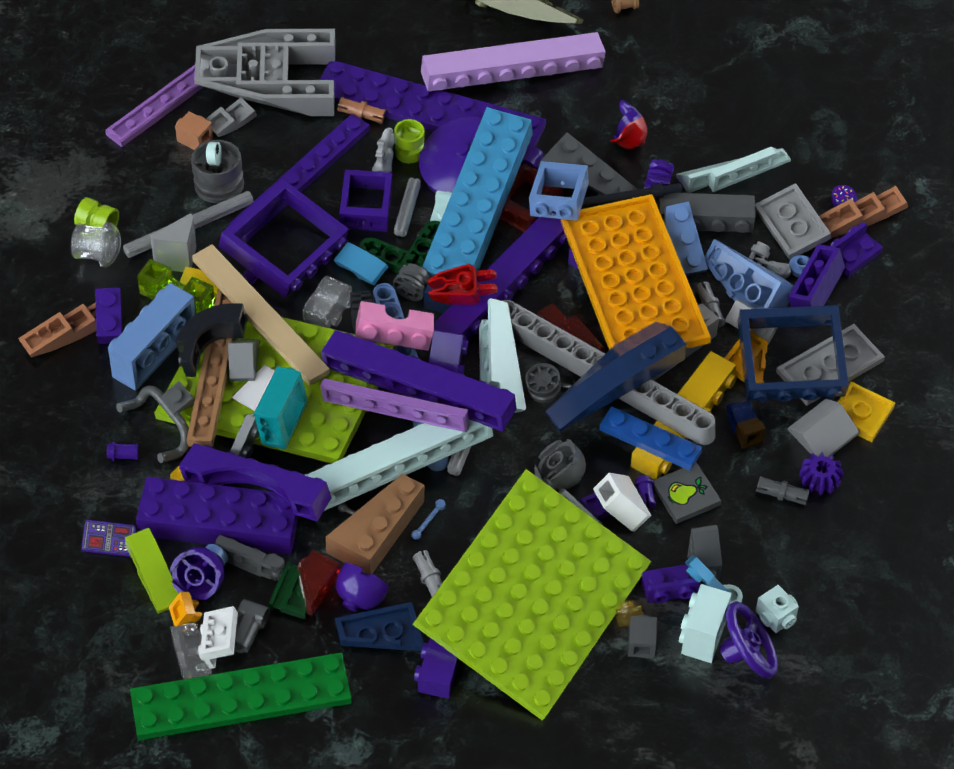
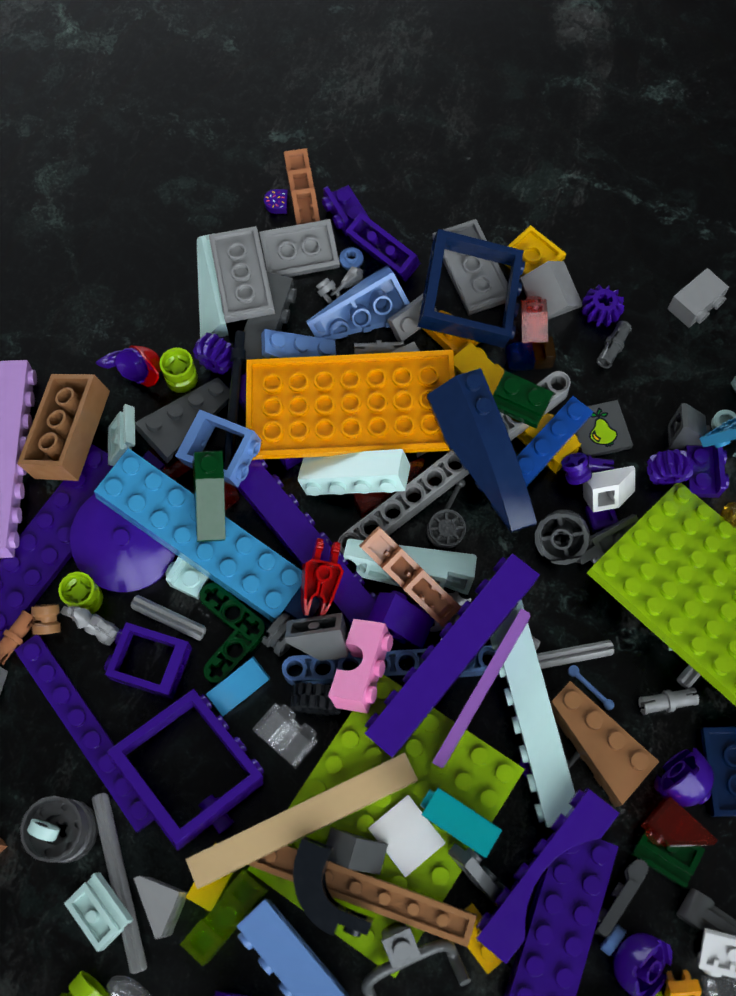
camera: 75 degrees left, 15 degrees up
(163, 212) = (98, 911): none -> light aqua plate
(378, 125) = (45, 619): none -> medium nougat wheel
(411, 293) = (319, 636): none -> dark grey slope
(454, 500) = (575, 654): none -> light grey axle
(487, 342) = (410, 576): none -> nougat slope
(507, 182) = (209, 495): none -> slope
(545, 133) = (121, 434): none -> light aqua plate
(550, 91) = (64, 427): none -> medium nougat brick
(570, 296) = (355, 473): none -> light aqua brick
(630, 465) = (576, 468): none -> dark purple wheel
(634, 158) = (178, 370): none -> lime wheel
(658, 544) = (670, 467): none -> dark purple gear
(675, 393) = (522, 399): none -> dark green plate
(743, 177) = (241, 274): none -> light grey tile
(775, 408) = (534, 320): none -> clear red brick
(860, 554) = (698, 298): none -> light grey brick

